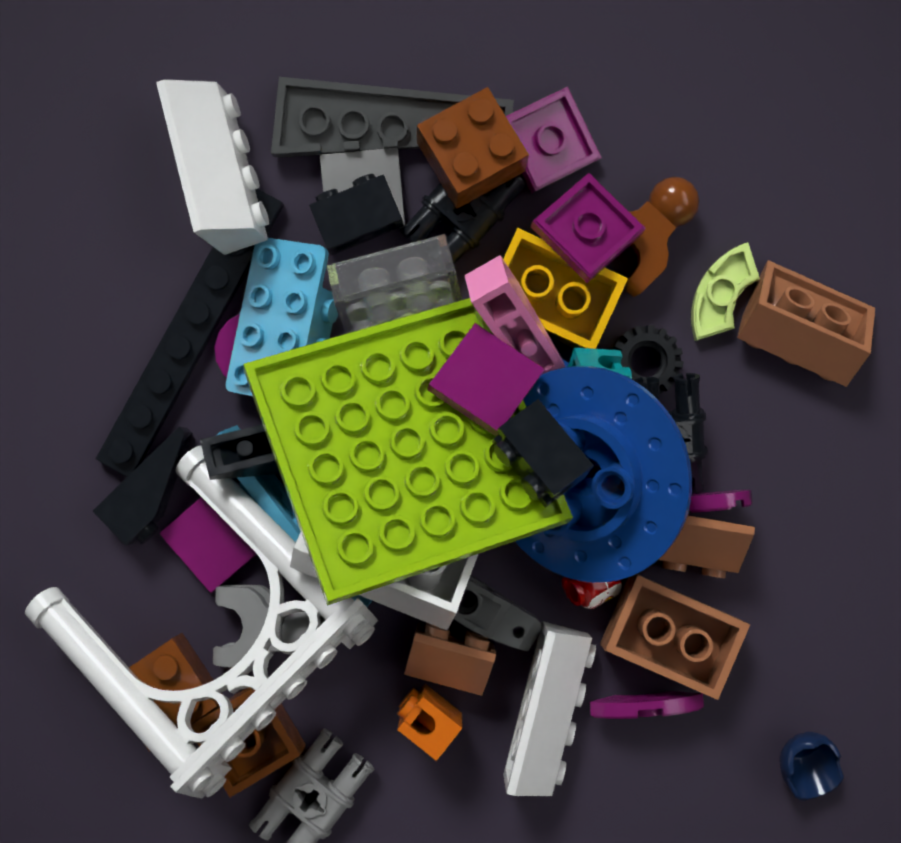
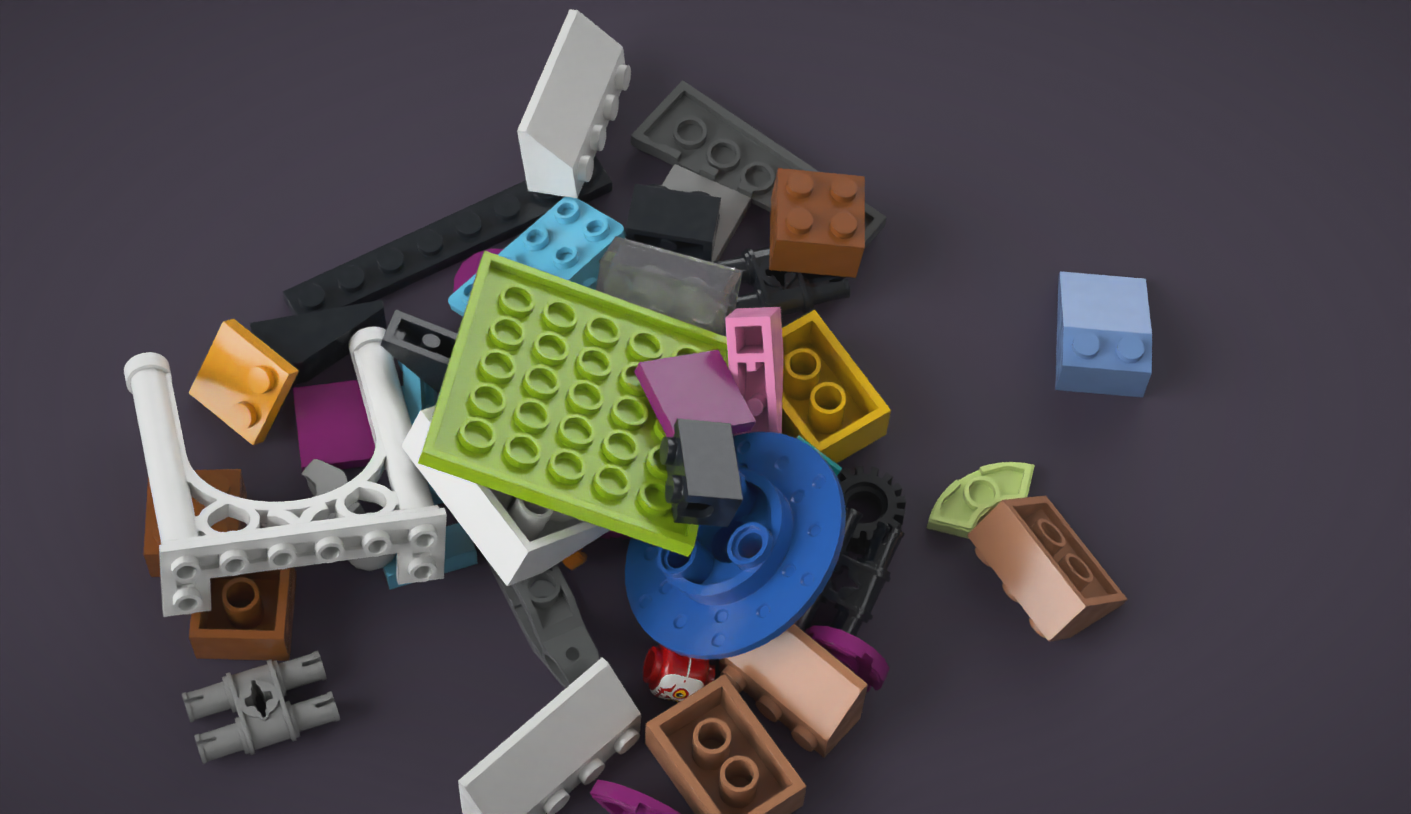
camera: 25 degrees right, 25 degrees down
(121, 560) = (243, 381): none -> light orange plate
(429, 720) = (428, 686): orange brick -> none
(451, 658) = (489, 651): nougat slope -> none
(553, 138) = (900, 270): magenta tile -> none
(587, 227) = (881, 347): magenta tile -> none
(670, 205) = (939, 394): dark orange piece -> none
(734, 93) = (1103, 335): none -> medium blue slope

